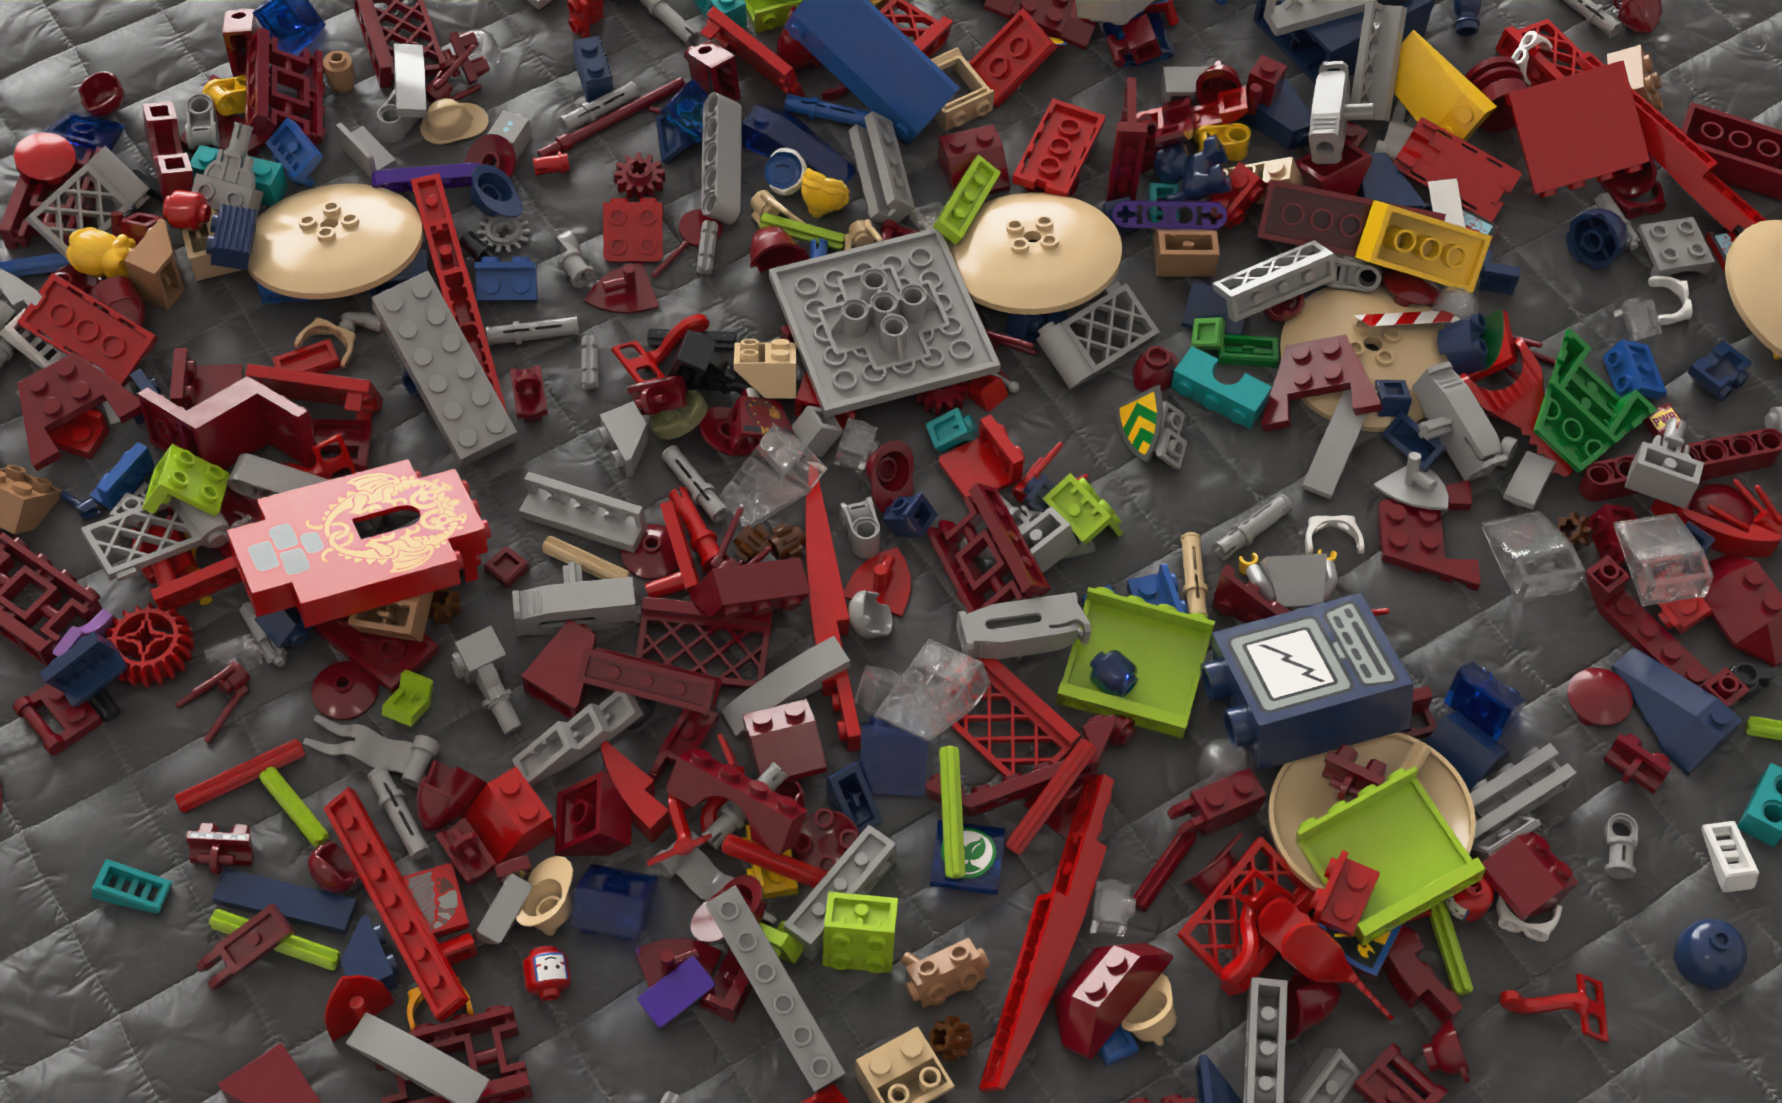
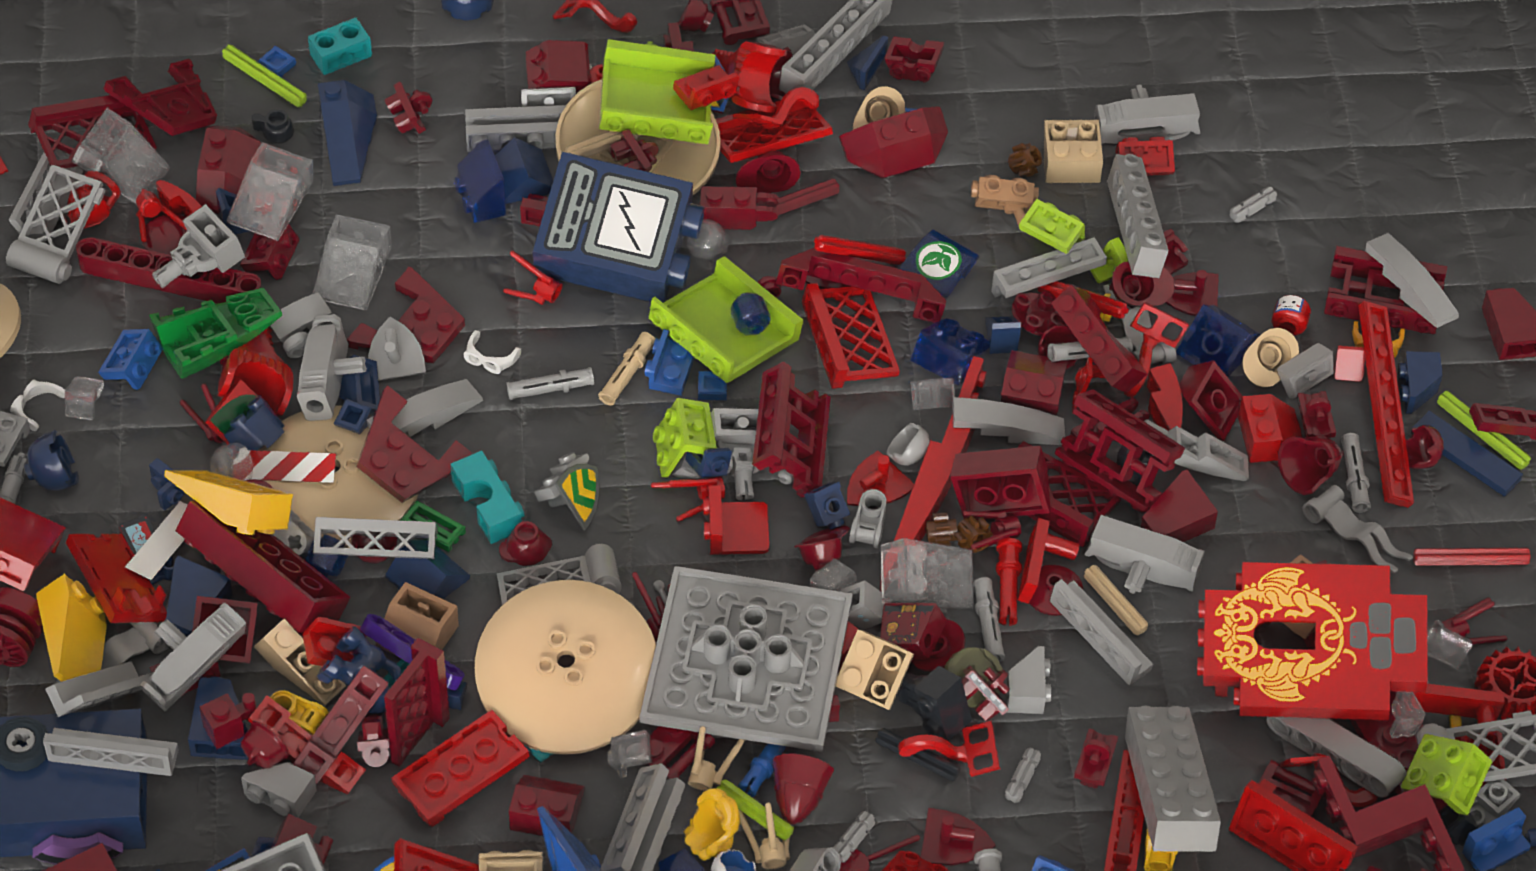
camera: 150 degrees left, 5 degrees down
(220, 848) = (1508, 500): dark red hips -> none
(294, 806) = (1435, 513): lime axle -> none
(351, 1000) = (1445, 340): red shield -> none
(410, 699) = (1316, 545): lime bracket -> none
(439, 899) = (1351, 405): tile -> none
(478, 660) = (1246, 531): light grey brick -> none
(506, 567) = (1183, 627): dark red tile -> none
(518, 866) = (1286, 389): dark red tile -> none
(532, 331) = (1057, 825): light grey pin -> none
(676, 991) = (1212, 260): dark purple slope -> none
(934, 691) = (900, 355): clear slope -> none
(951, 429) = (741, 562): teal bracket -> none
(952, 812) = (939, 272): lime axle -> none
(966, 200) = (593, 737): lime piece -> none
(1023, 627) = (813, 360): light grey piece -> none
(1050, 934) = (921, 180): red slope -> none
(1111, 908) = (859, 186): clear brick -> none
(1208, 333) = (459, 545): bright green tile -> none
(1242, 600) = (603, 316): dark red wing -> none
(1293, 579) = (556, 320): light grey torso -> none
(1570, 523) = (304, 263): reddish brown gear -> none
(1599, 697) = (391, 163): dark red dish -> none
(1621, 847) = (468, 71): light grey connector -> none
(1639, 628) = (312, 146): dark red slope -> none
(1657, 421) = (140, 315): tile -> none
(1720, 371) = (66, 325): dark blue cylinder -> none
(1730, 876) = (397, 20): white slope -> none

